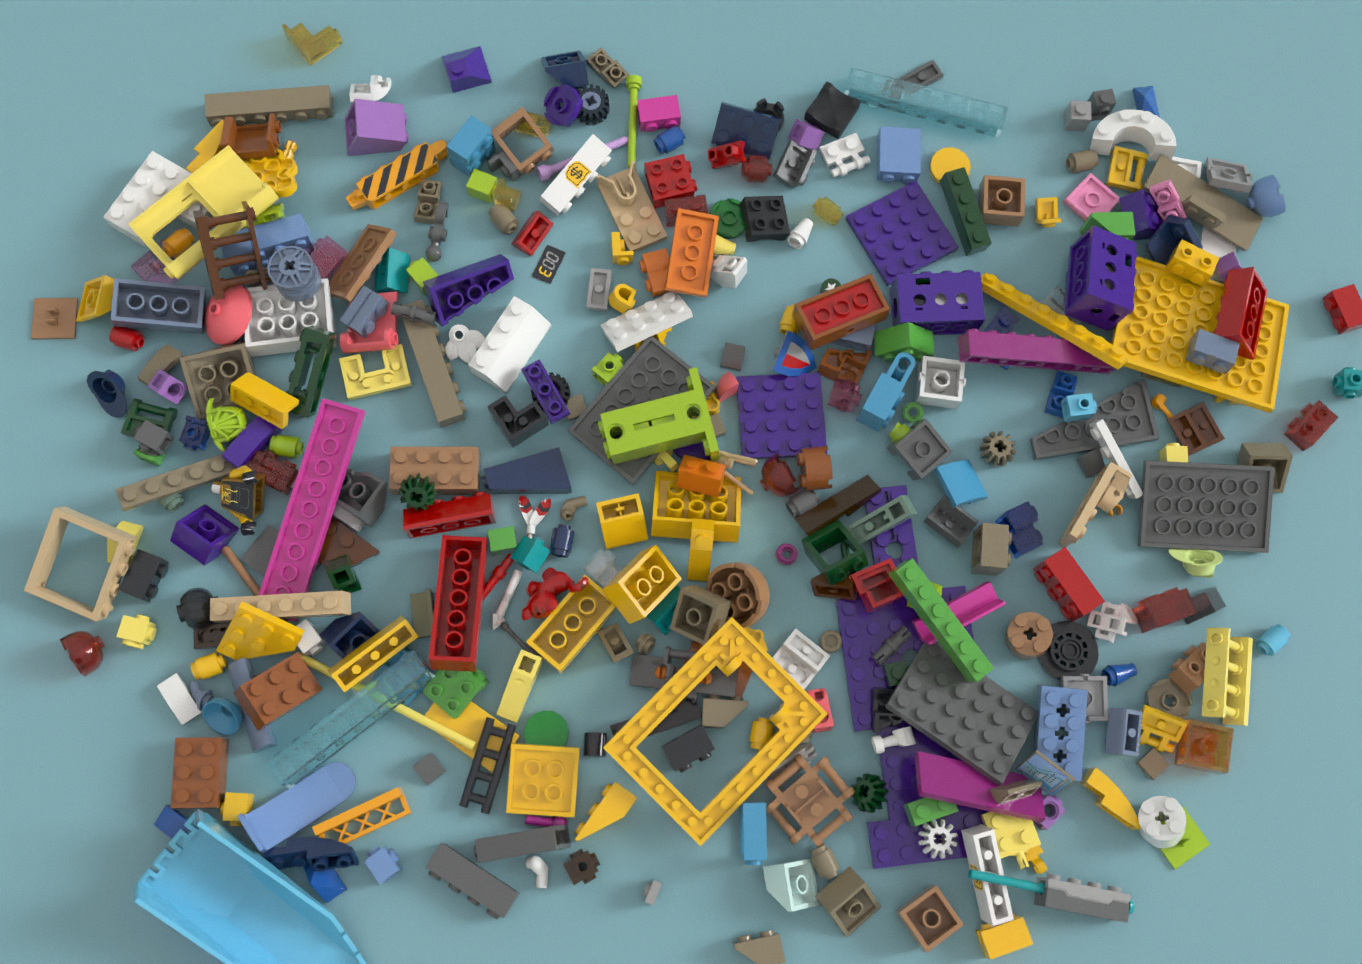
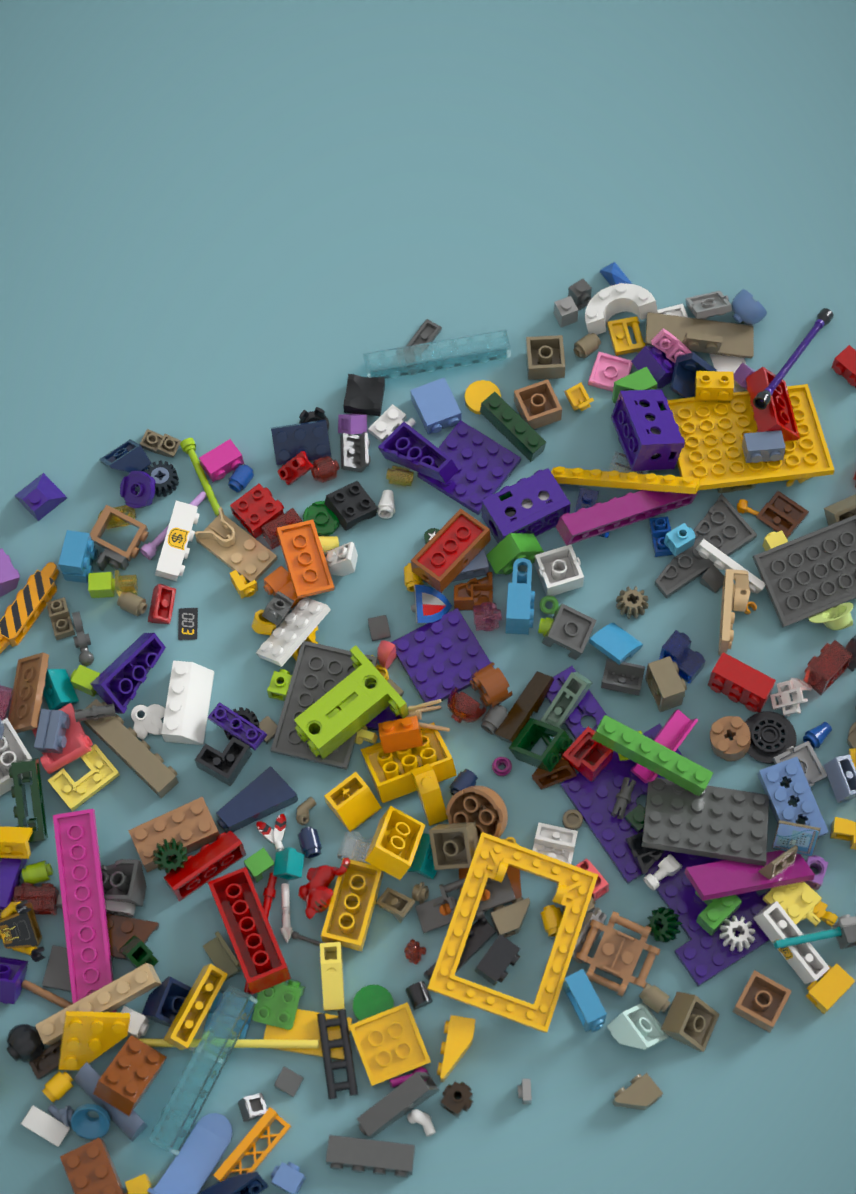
camera: 15 degrees left, 10 degrees down
(384, 776) = (252, 1107): none -> dark grey slope
(598, 289) = (241, 624): light grey plate -> none
(611, 699) = (414, 951): none -> clear red plant
(641, 291) = (278, 608): none -> dark grey brick
(740, 552) = (462, 781): none -> dark blue brick
(855, 195) = (415, 452): none -> dark purple wedge
(1033, 154) = (545, 357): none -> dark tan brick
(1239, 301) = (764, 397): none -> dark purple hose

